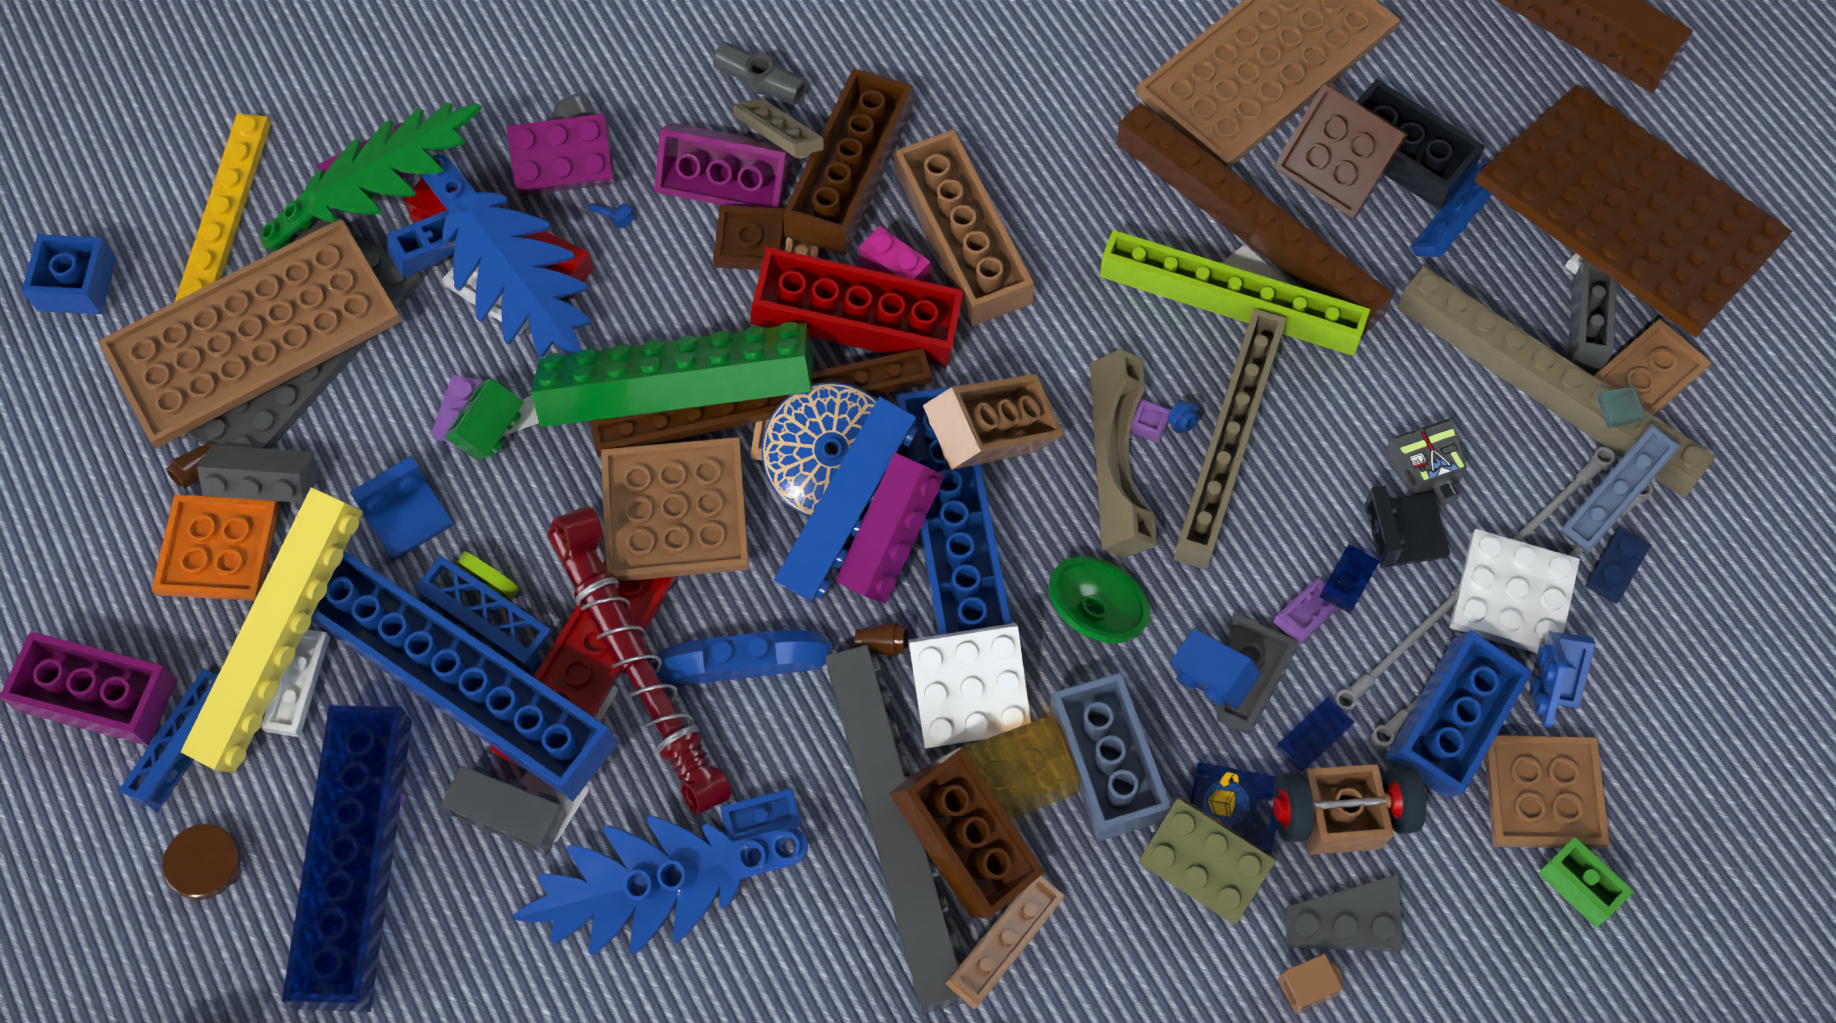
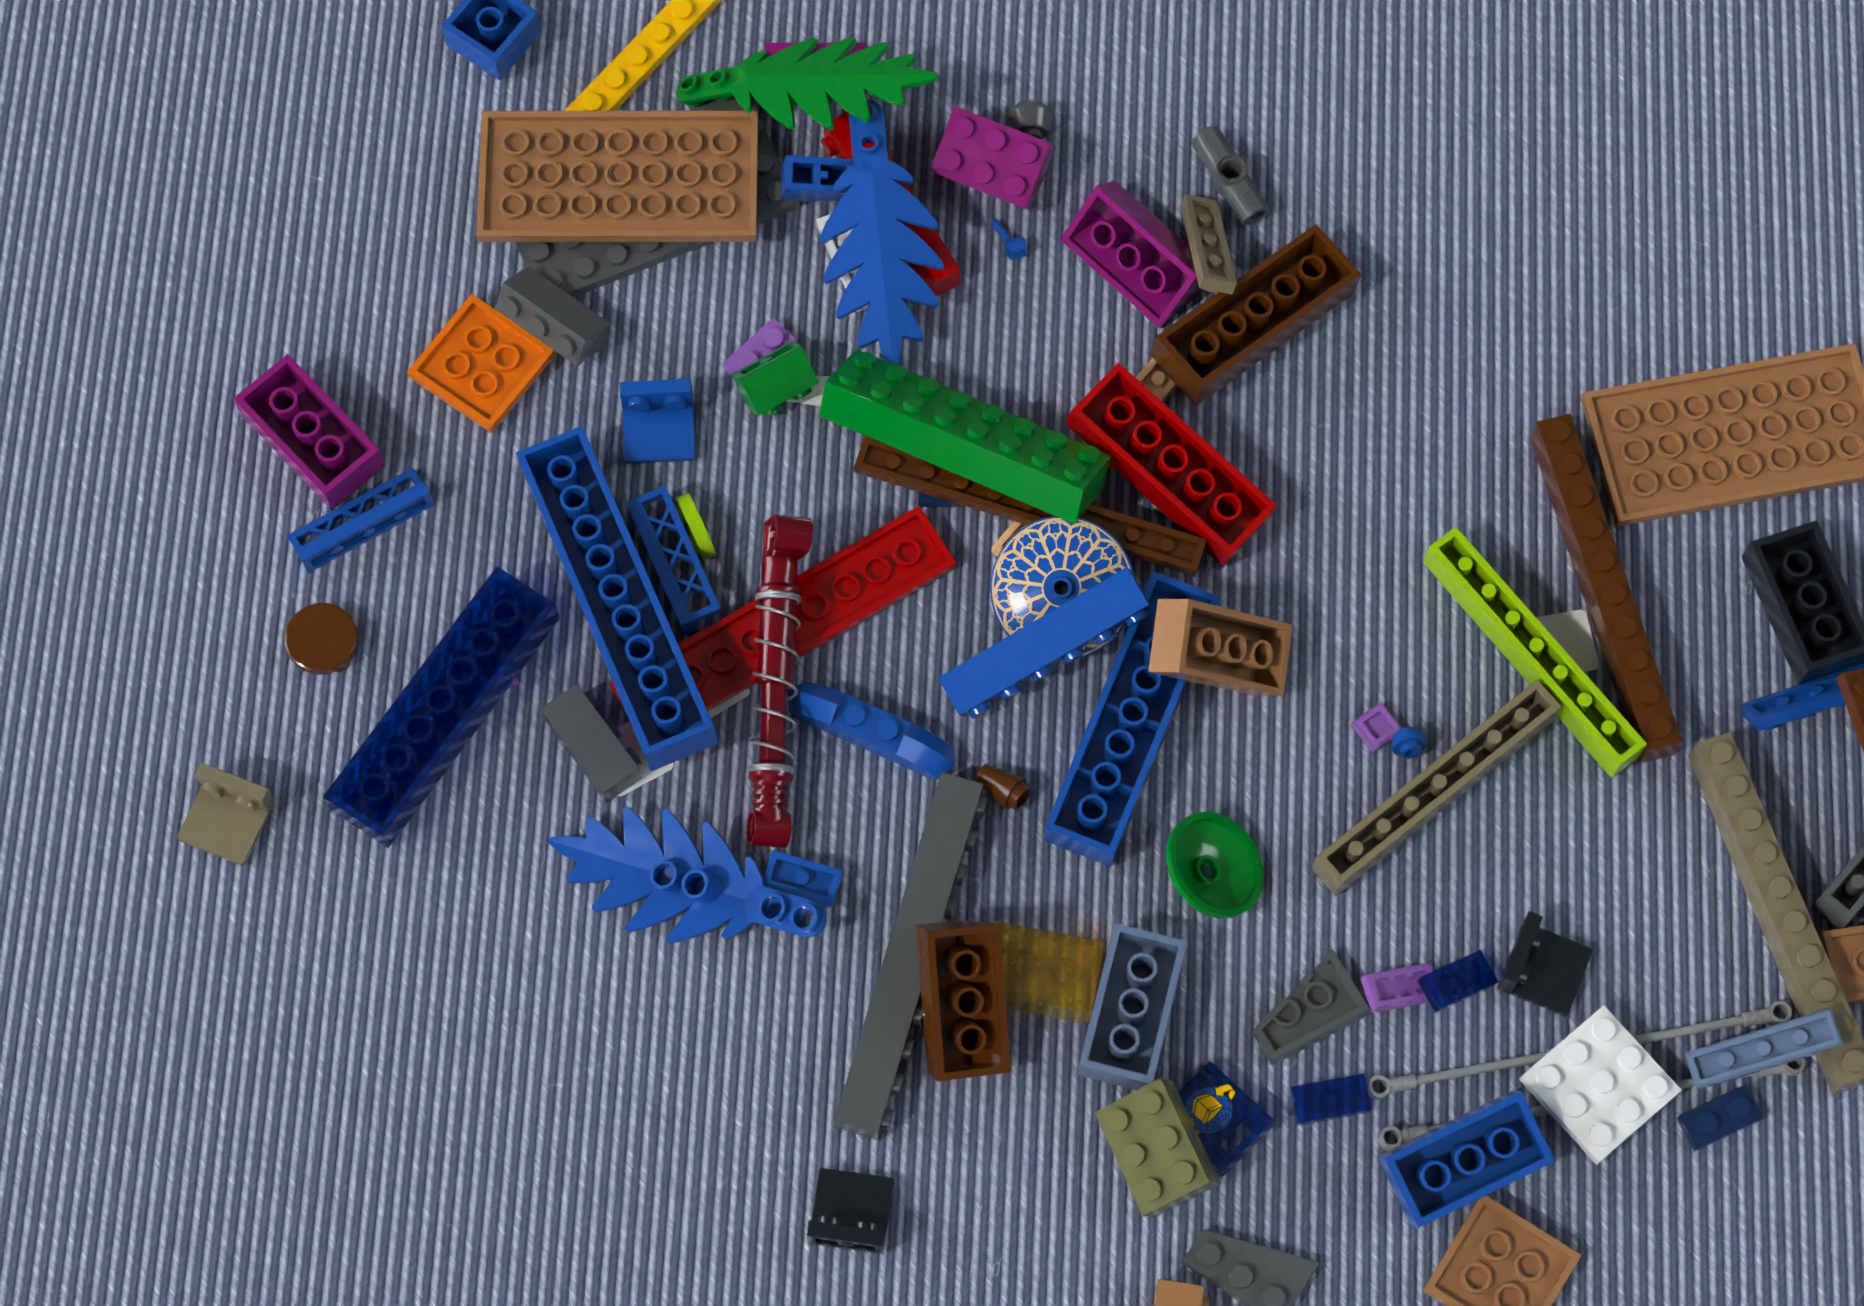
camera: 30 degrees right, 5 degrees up
(184, 468) = (495, 272): reddish brown cone -> none
(272, 632) = (486, 472): light yellow brick -> none
(291, 703) = (482, 526): white plate -> none
(674, 509) = (891, 561): medium nougat plate -> none
(745, 234) = (1117, 334): reddish brown plate -> none
(889, 528) = (1067, 691): magenta brick -> none
(892, 256) = (1236, 437): dark pink brick -> none
(963, 227) = (1321, 441): medium nougat brick -> none
(969, 684) = (1050, 872): white plate -> none
(1004, 941) = (941, 1108): medium nougat tile -> none
(1116, 391) = (1291, 799): dark tan arch -> none
(1215, 669) = (1275, 987): blue brick -> none
(1340, 150) = (1731, 572): reddish brown plate -> none
(1348, 807) = (1308, 1176): brick -> none
(1429, 460) = (1610, 917): torso -> none
(1562, 673) = (1585, 1179): blue bracket -> none
(1621, 407) = (1816, 975): clear light blue tile -> none

